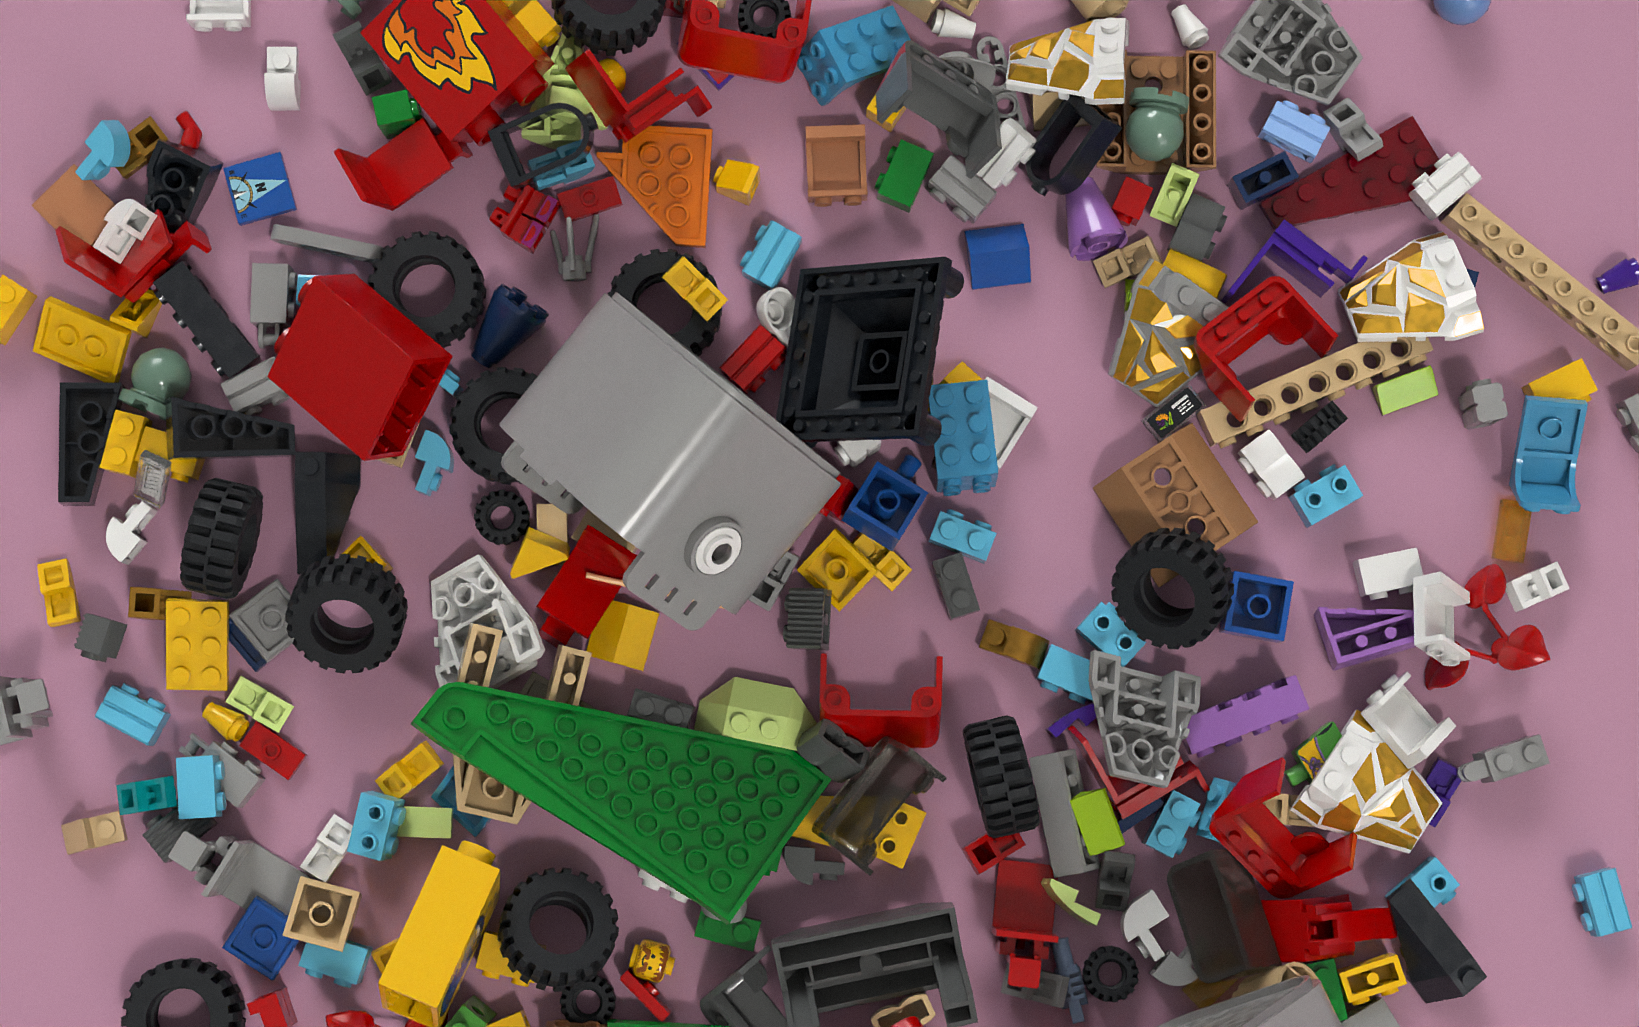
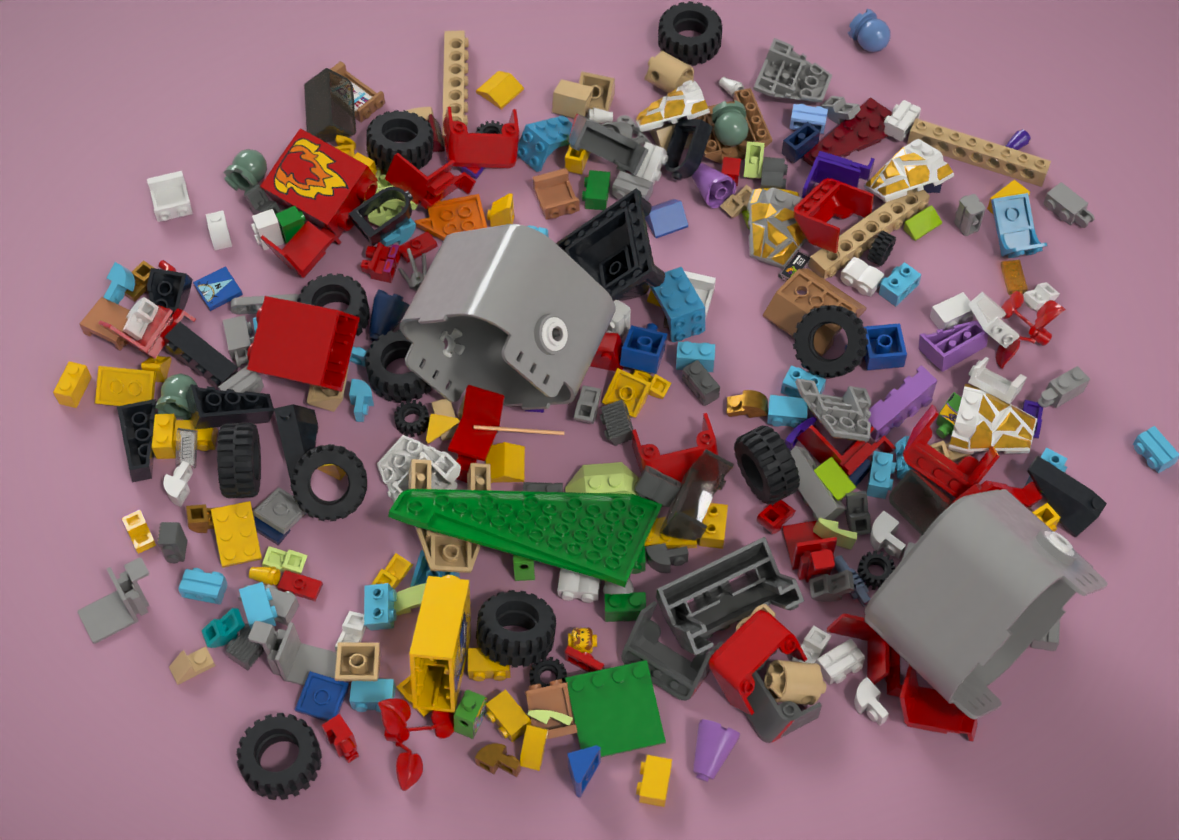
camera: 15 degrees left, 25 degrees down
(355, 109) = (268, 226): none -> white brick

